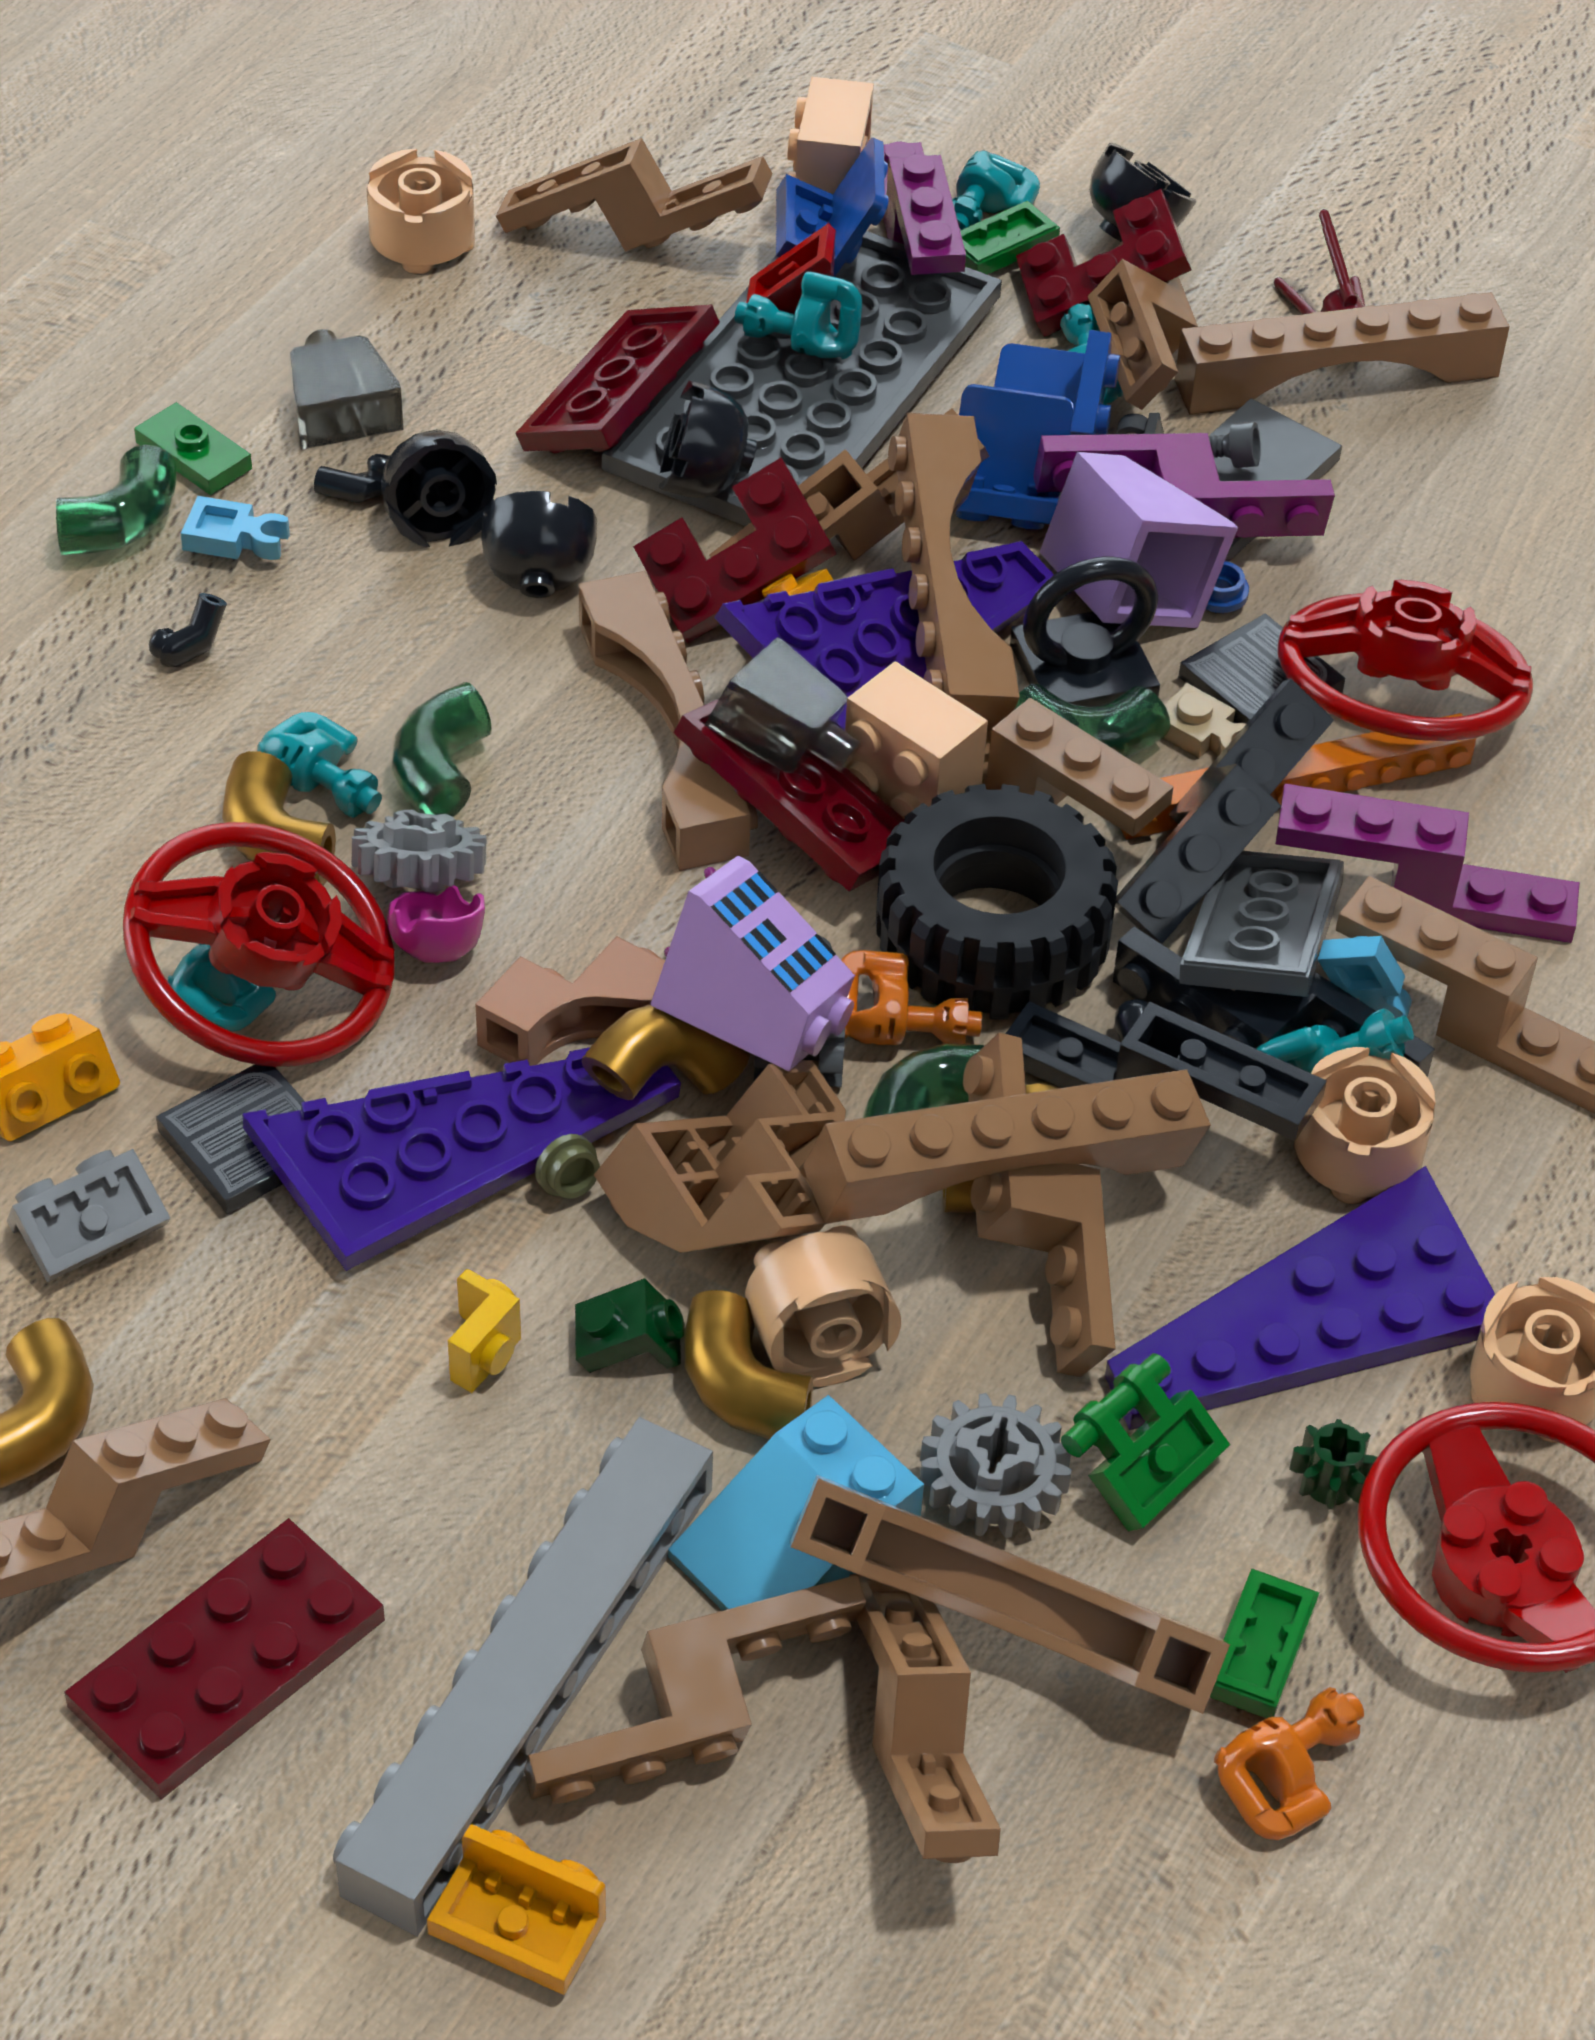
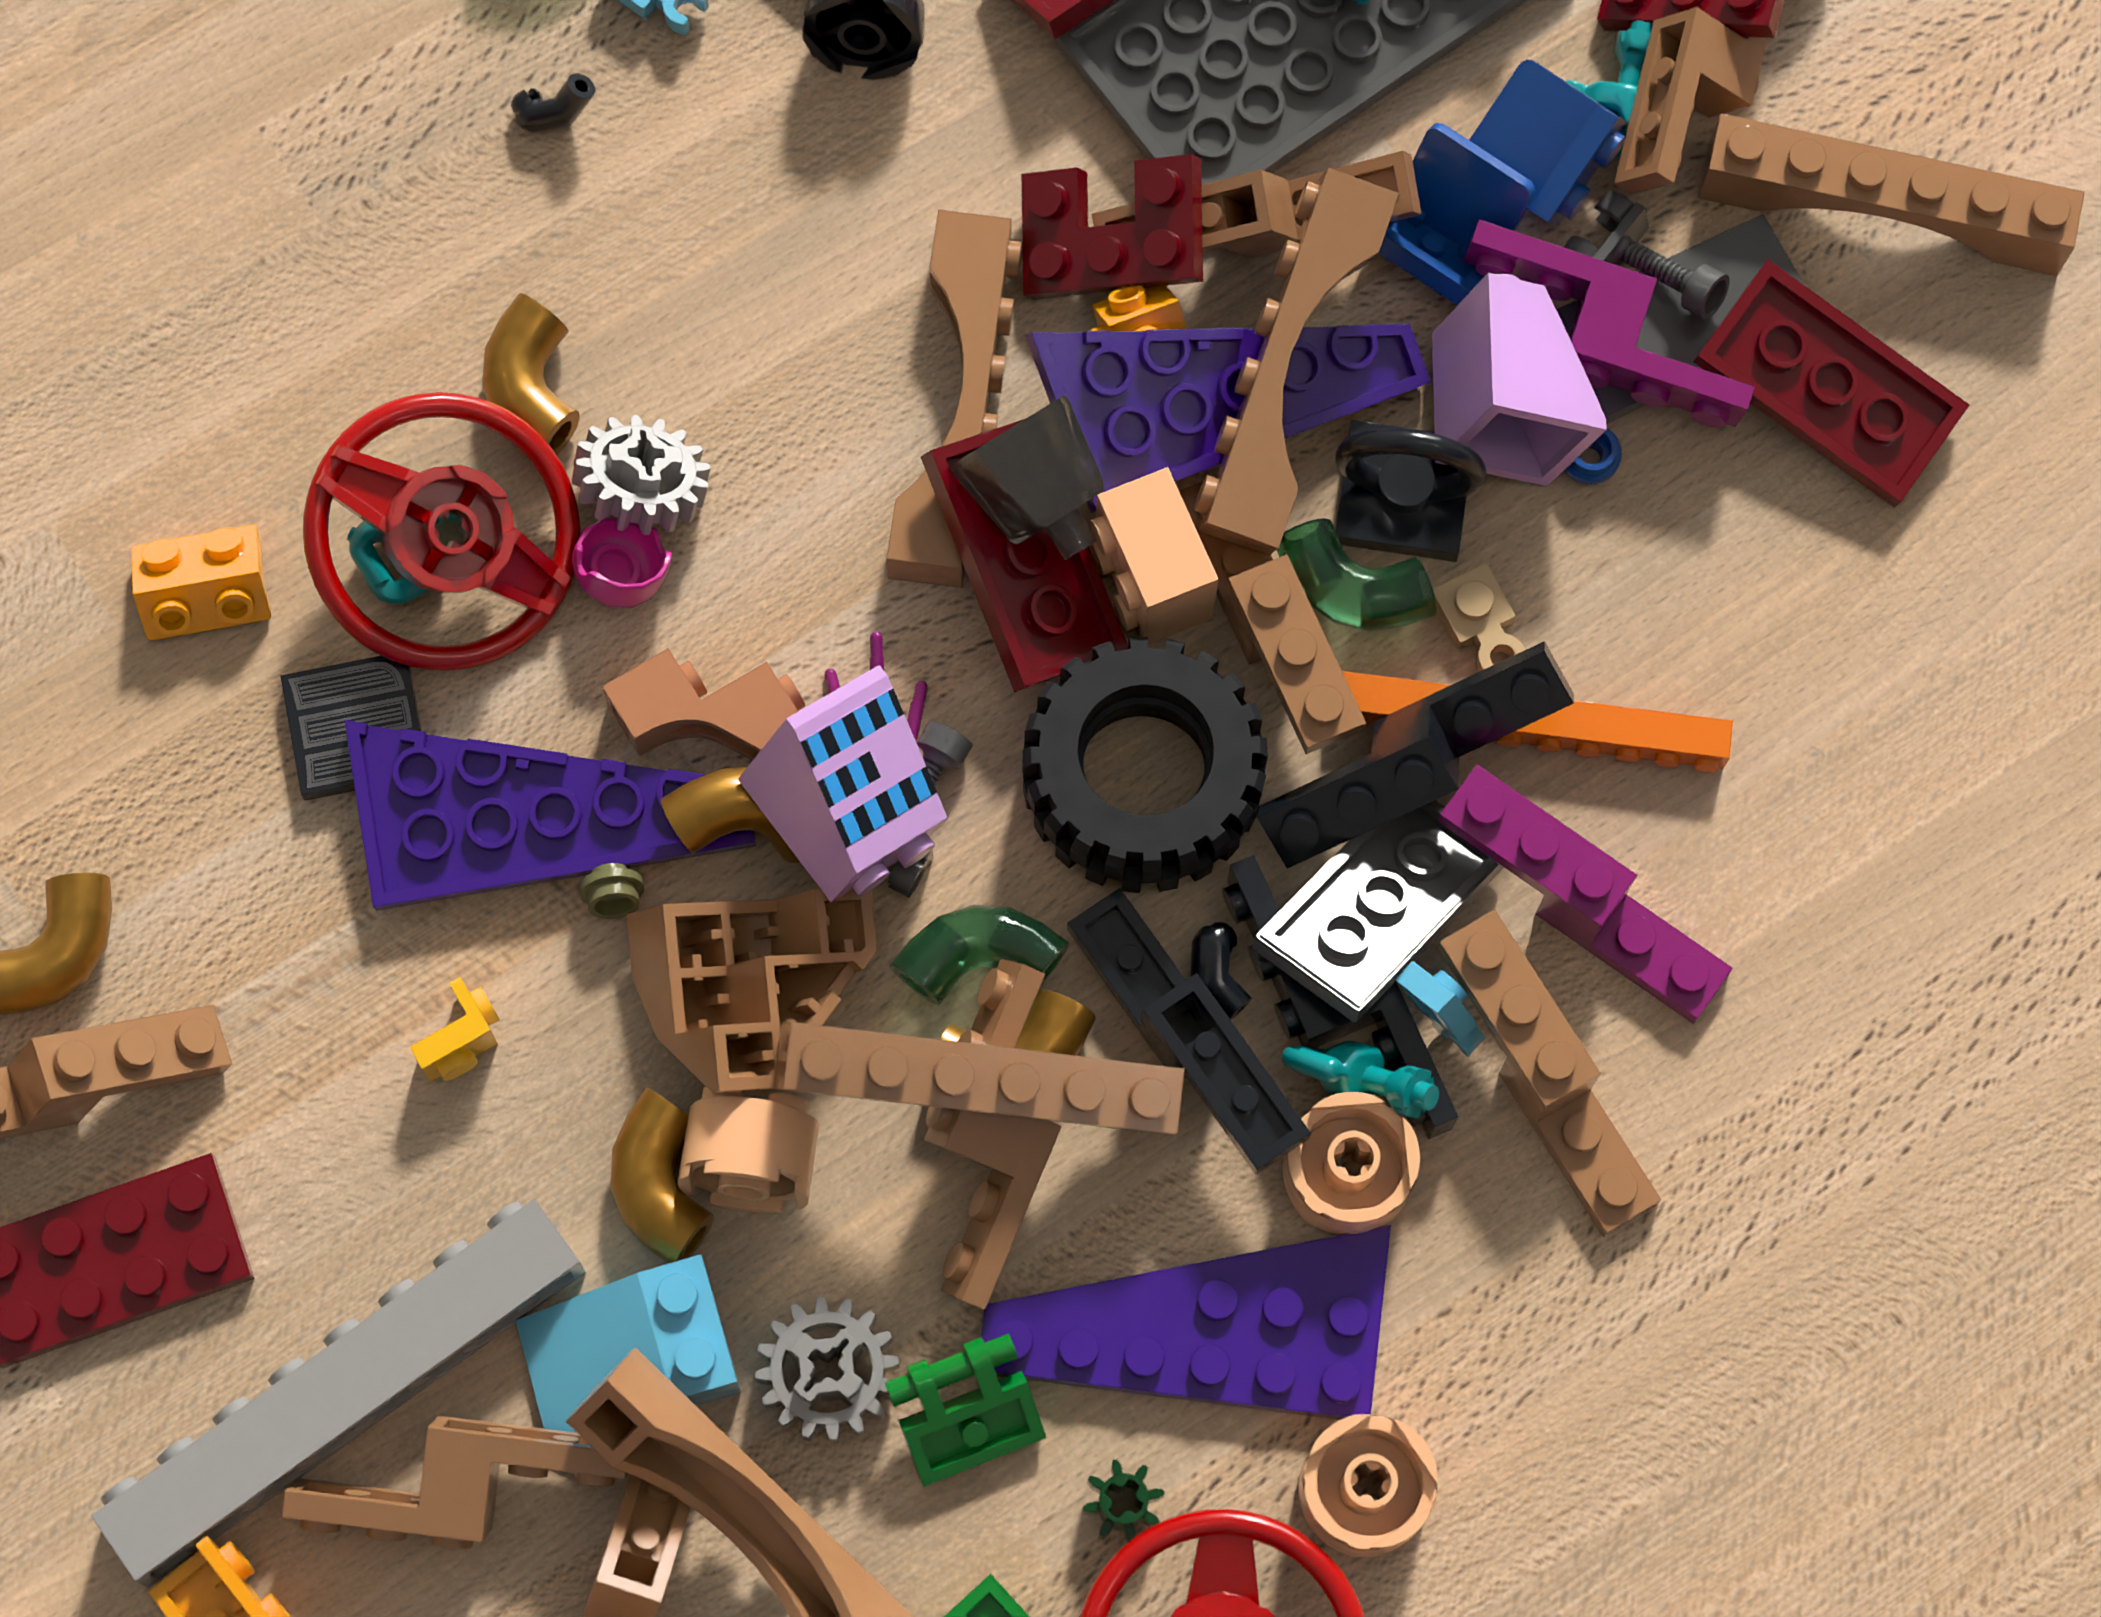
camera: 25 degrees right, 25 degrees up
(87, 1214) = (175, 759): light grey bracket -> none
(311, 750) = (599, 312): teal piece -> none
(426, 748) = (707, 345): clear green cylinder -> none
(538, 542) = (928, 138): black cylinder -> none
(626, 1325) = (585, 1085): dark green bracket -> none
(706, 444) = (1143, 85): black cylinder -> none
(891, 1014) = (988, 846): orange piece -> none
(1246, 668) = (1571, 580): tile -> none
(1350, 292) = (1931, 130): dark red plant -> none
(1388, 476) = (1832, 383): none -> dark red plate
(1413, 637) = (1747, 652): red piece -> none

